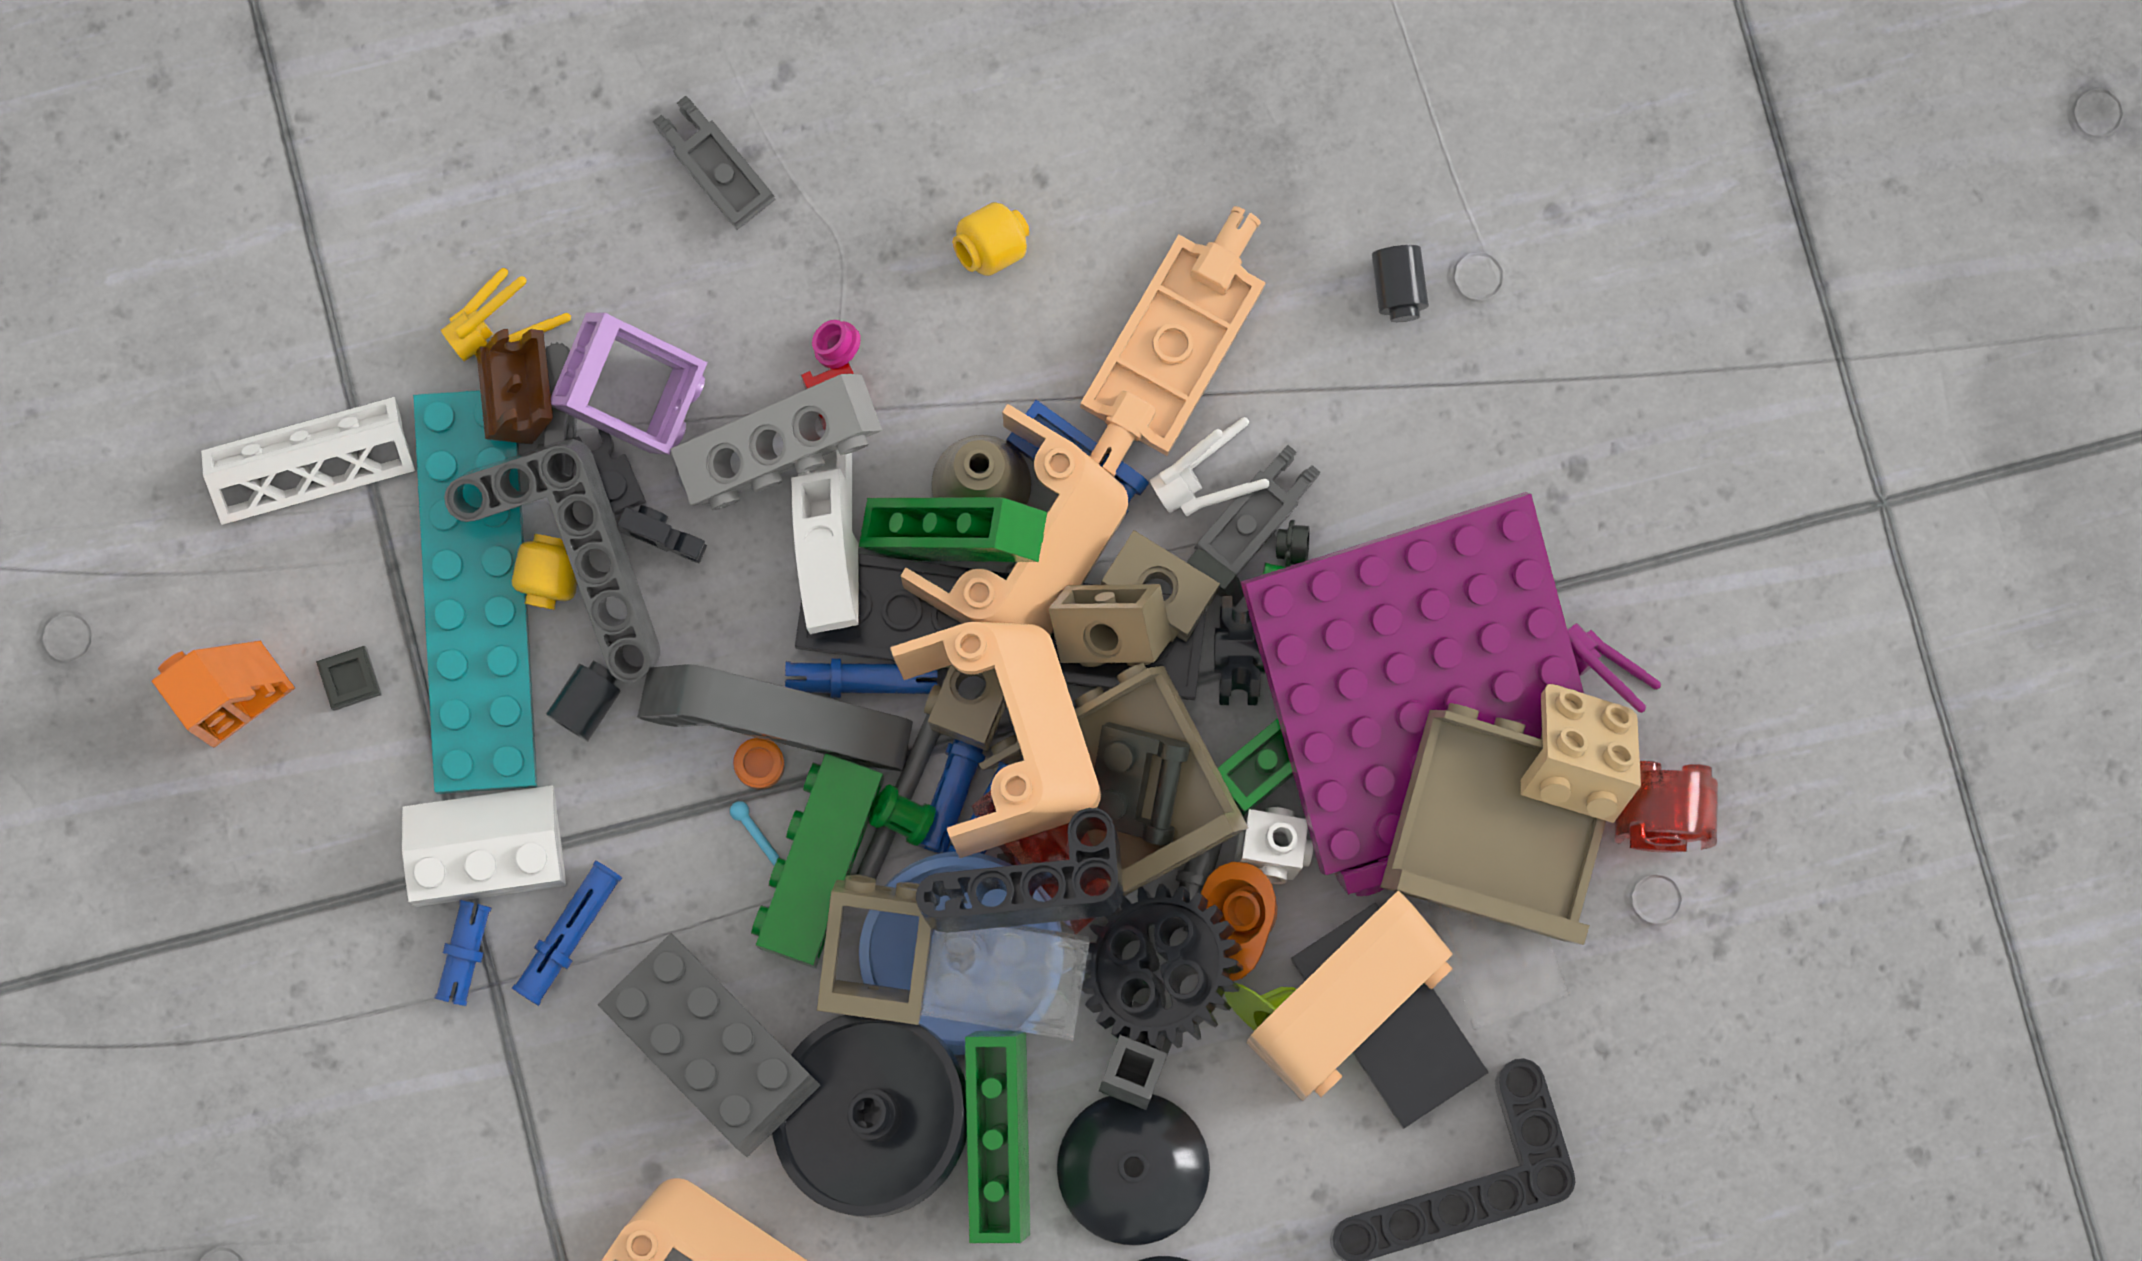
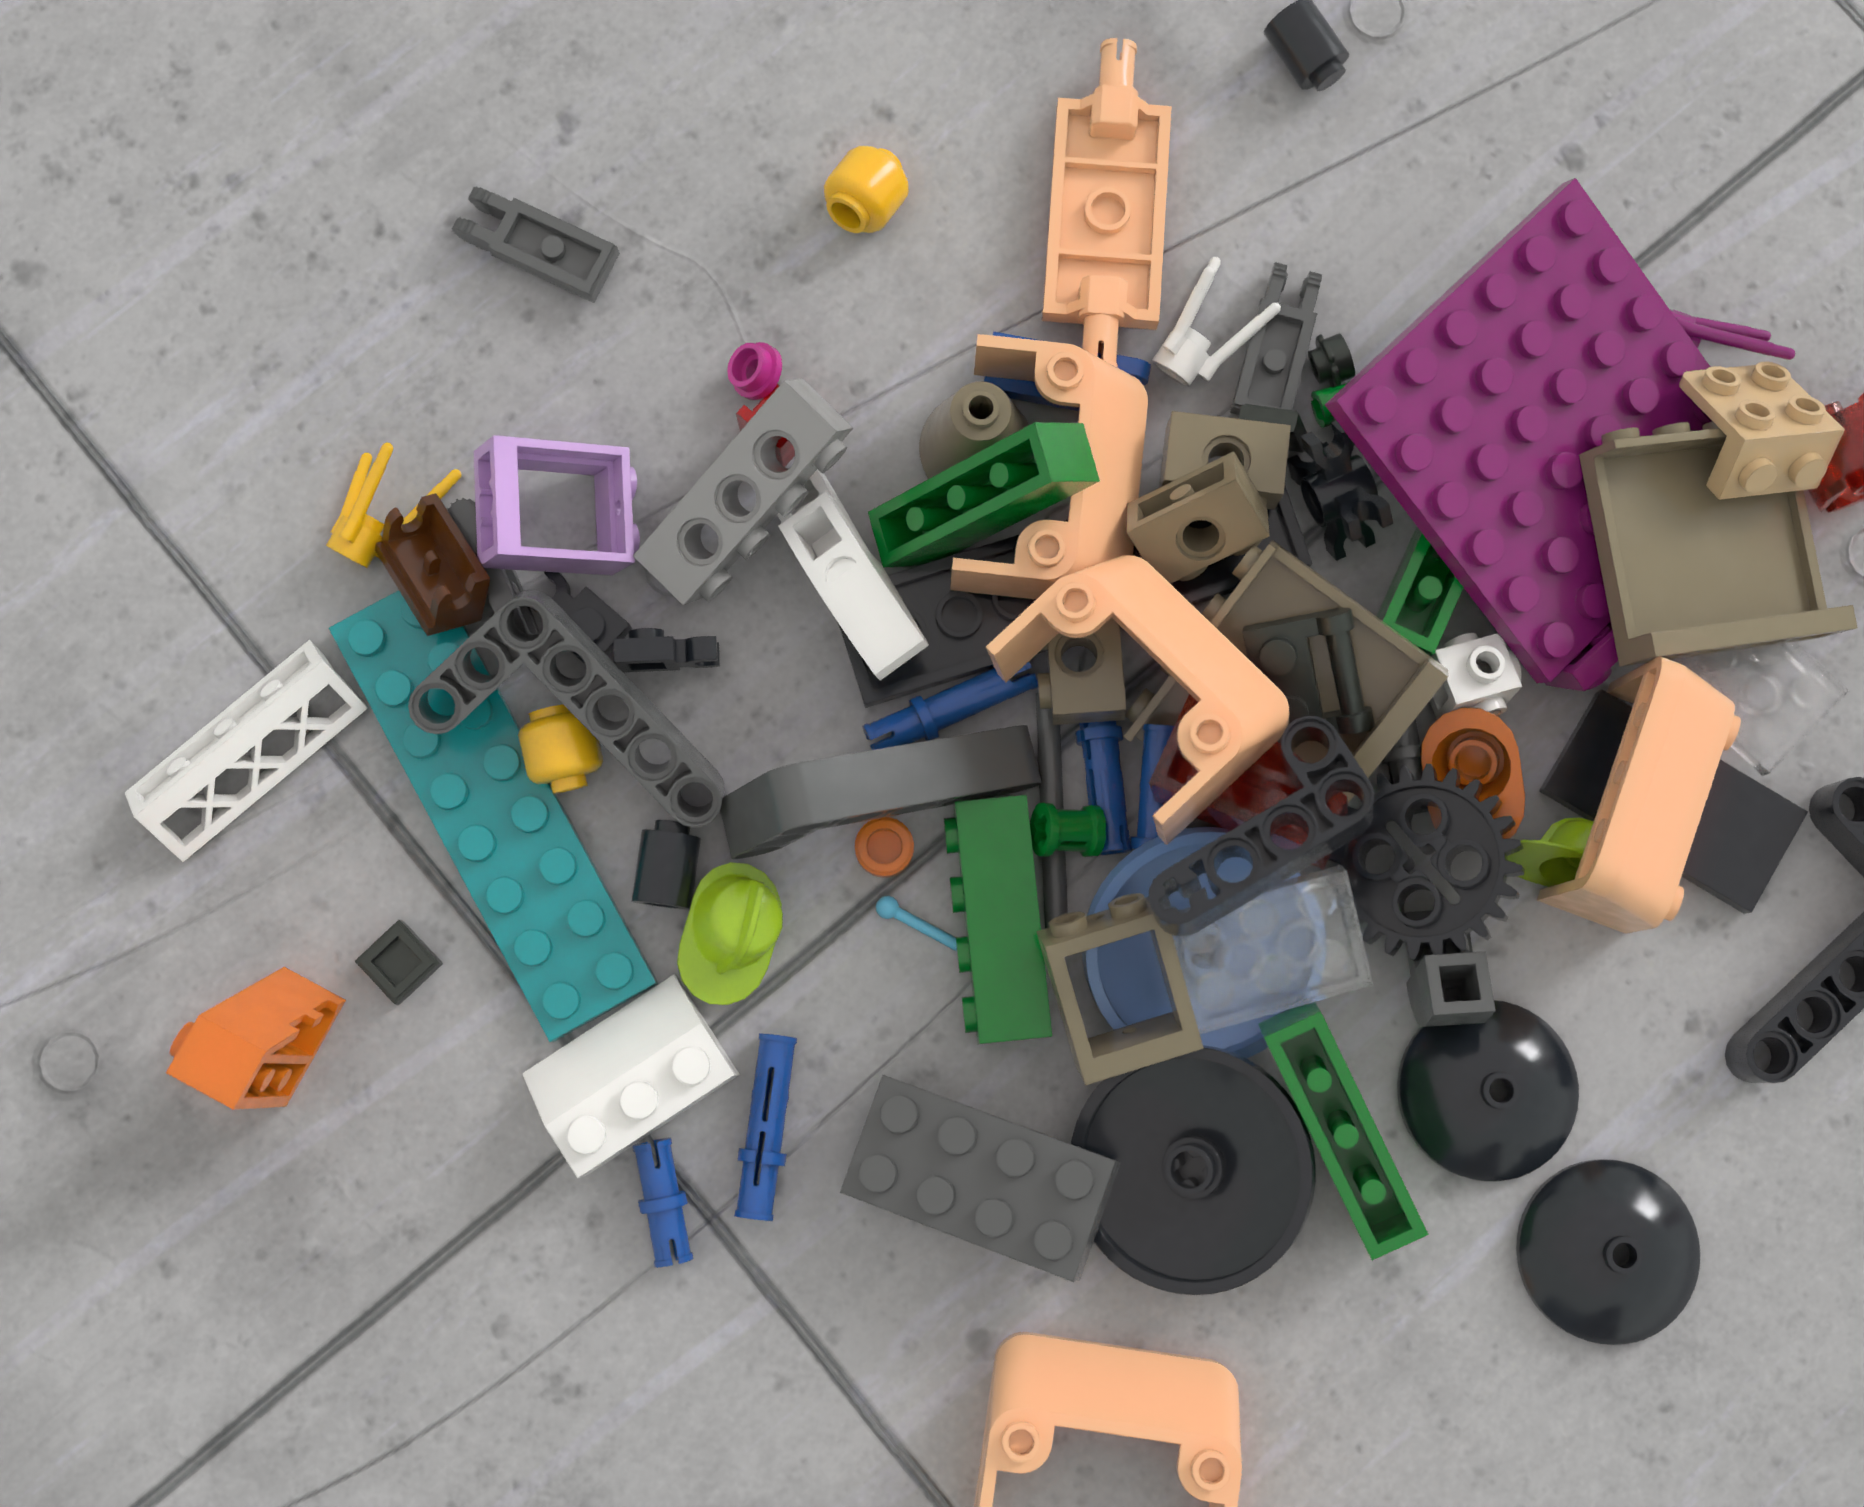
camera: 30 degrees left, 0 degrees up
(609, 774) = (729, 933): none -> lime piece

